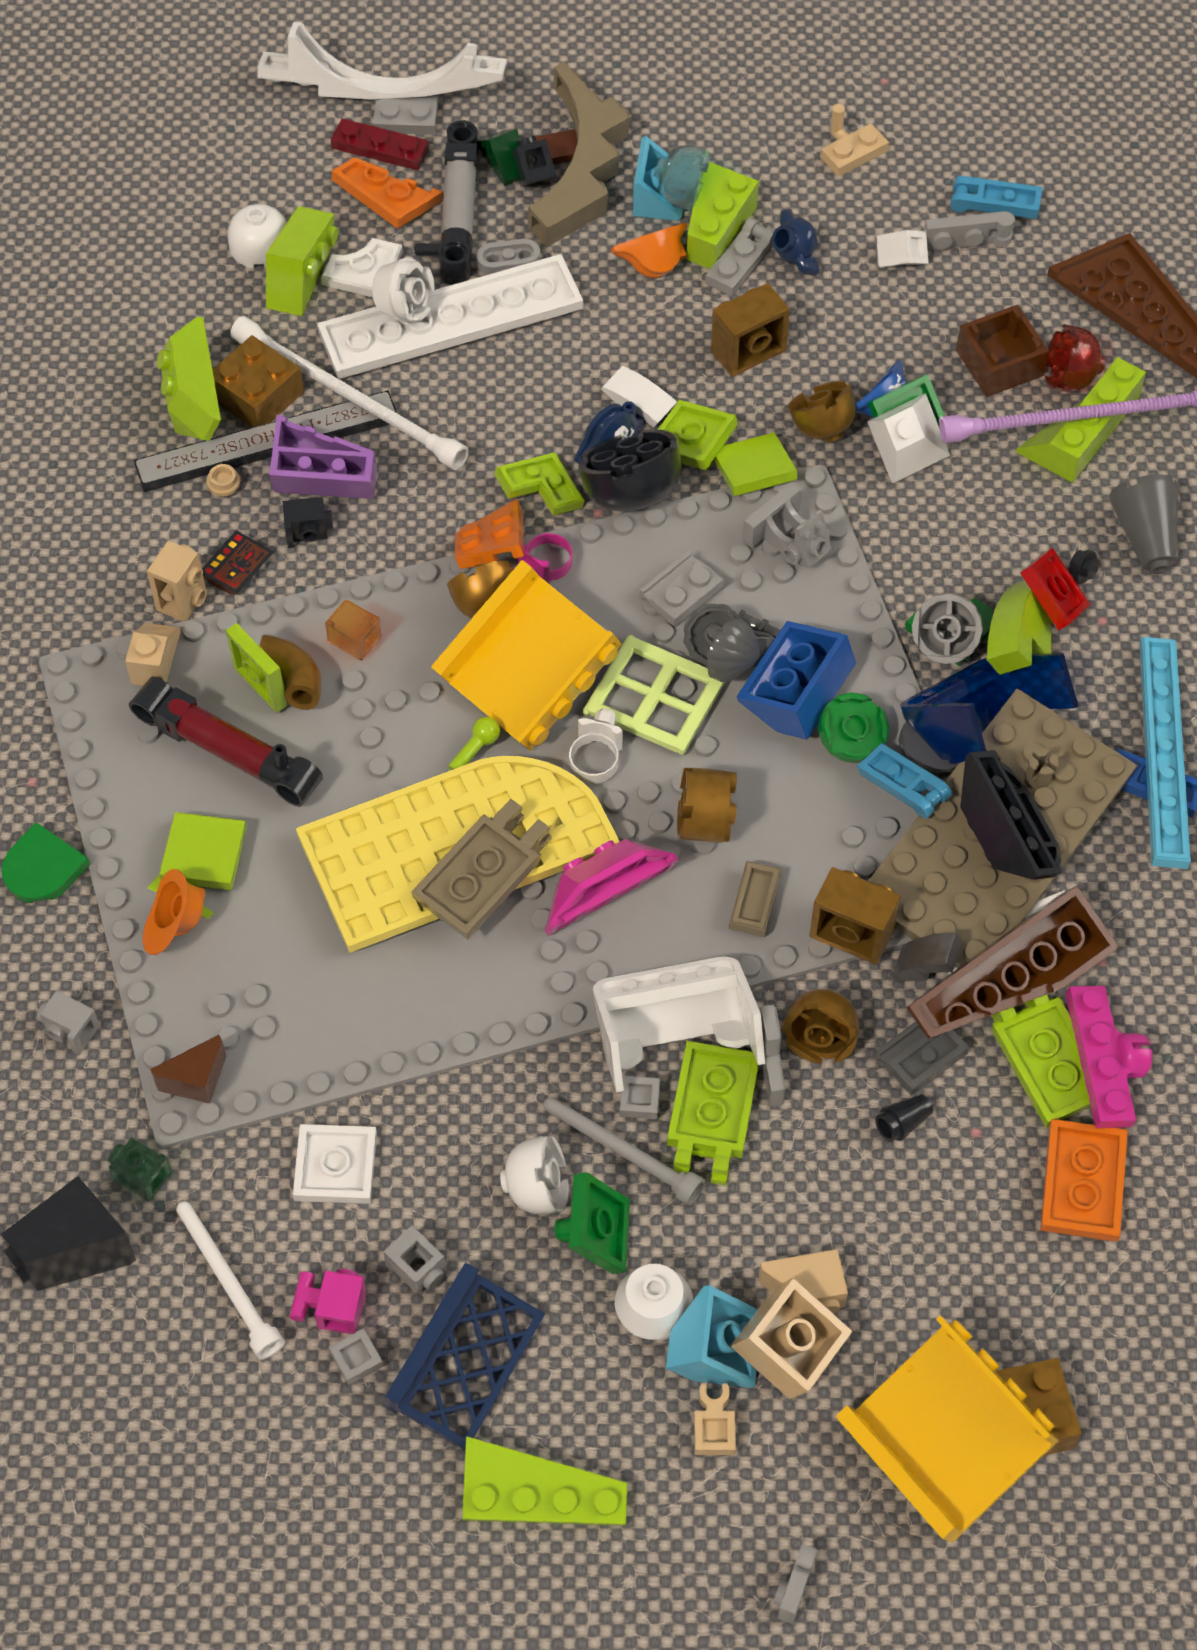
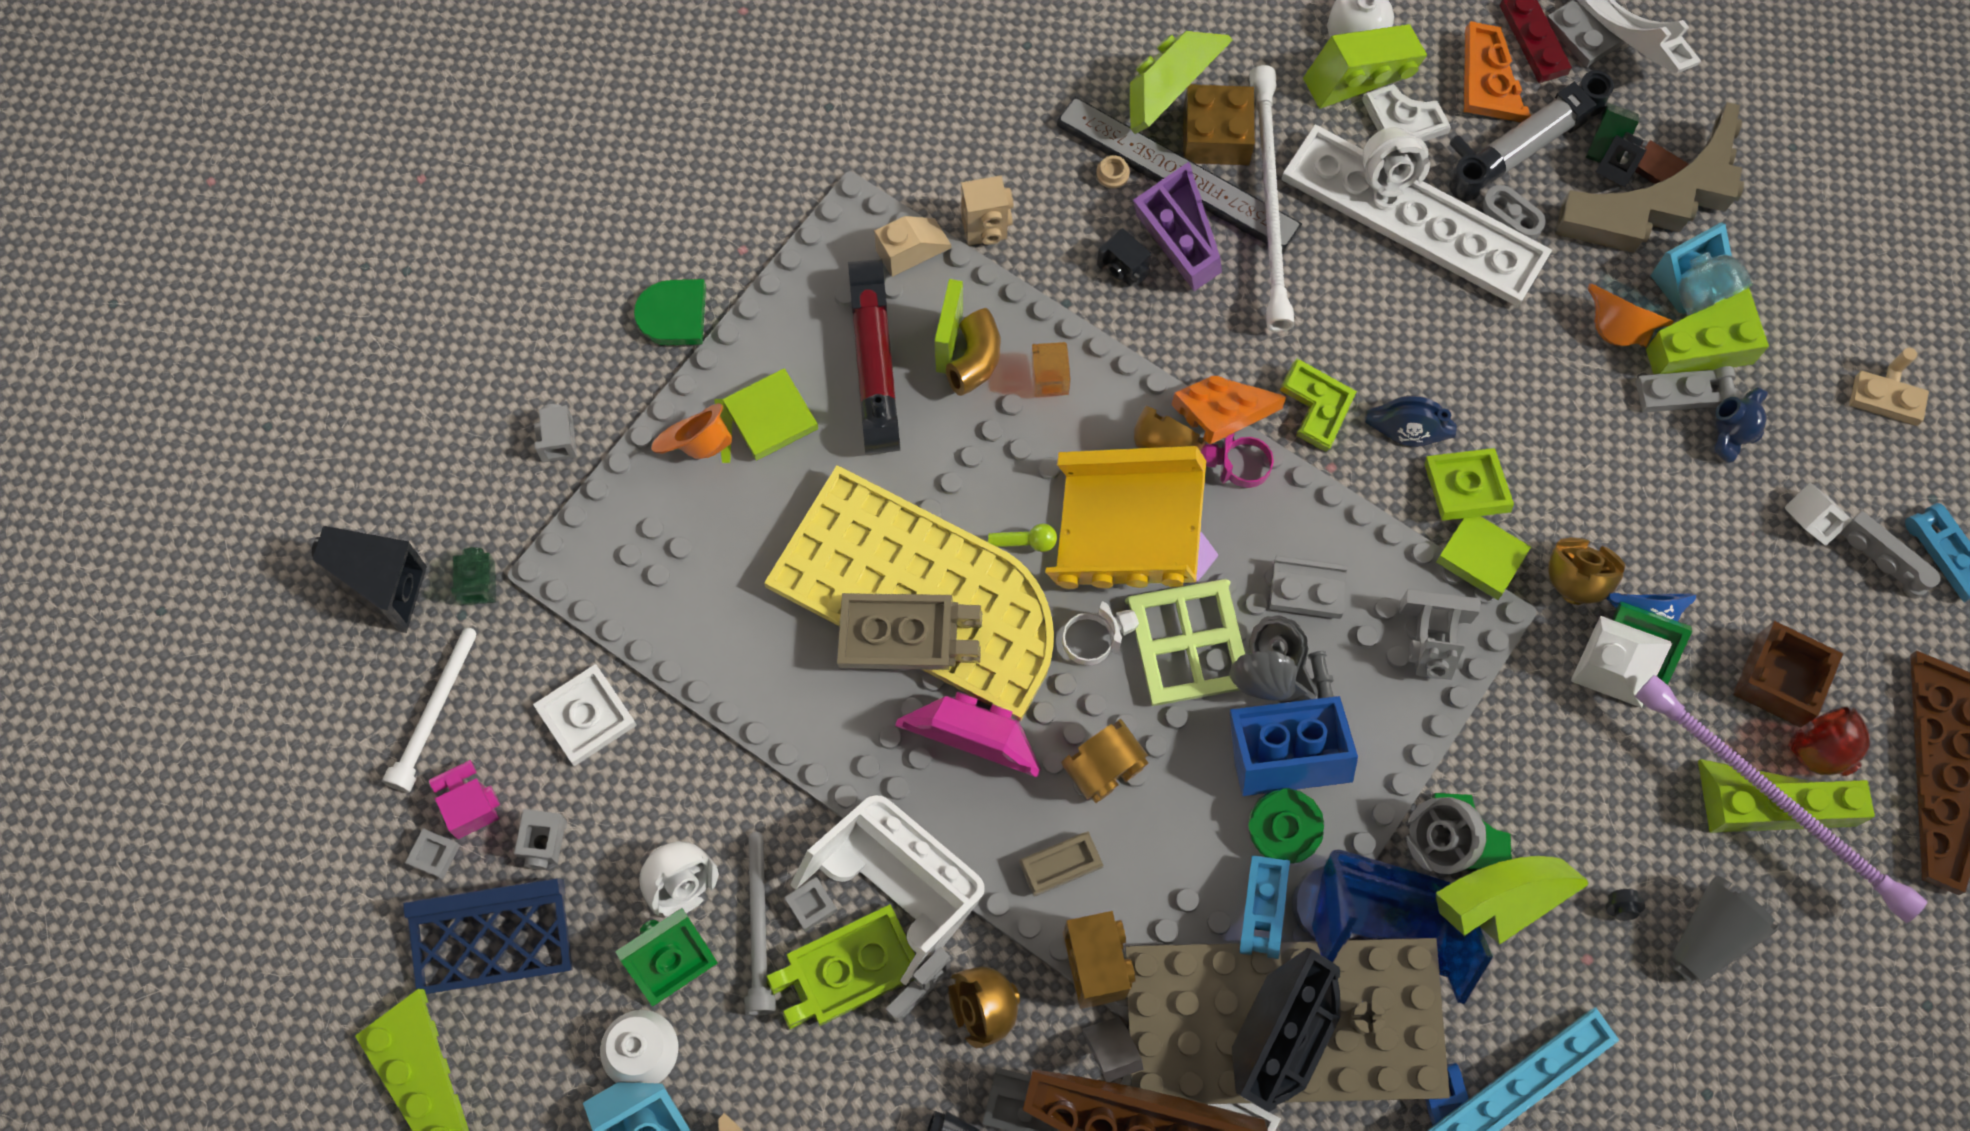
camera: 50 degrees right, 10 degrees up
(193, 1071) = (575, 555): reddish brown slope -> none
(235, 563) = (1048, 238): piece -> none
(631, 470) = (1380, 462): black cylinder -> none
(650, 400) = (1470, 414): white slope -> none
(749, 329) = (1610, 451): pearl gold brick -> none
(1055, 588) = (1570, 898): red tile -> none

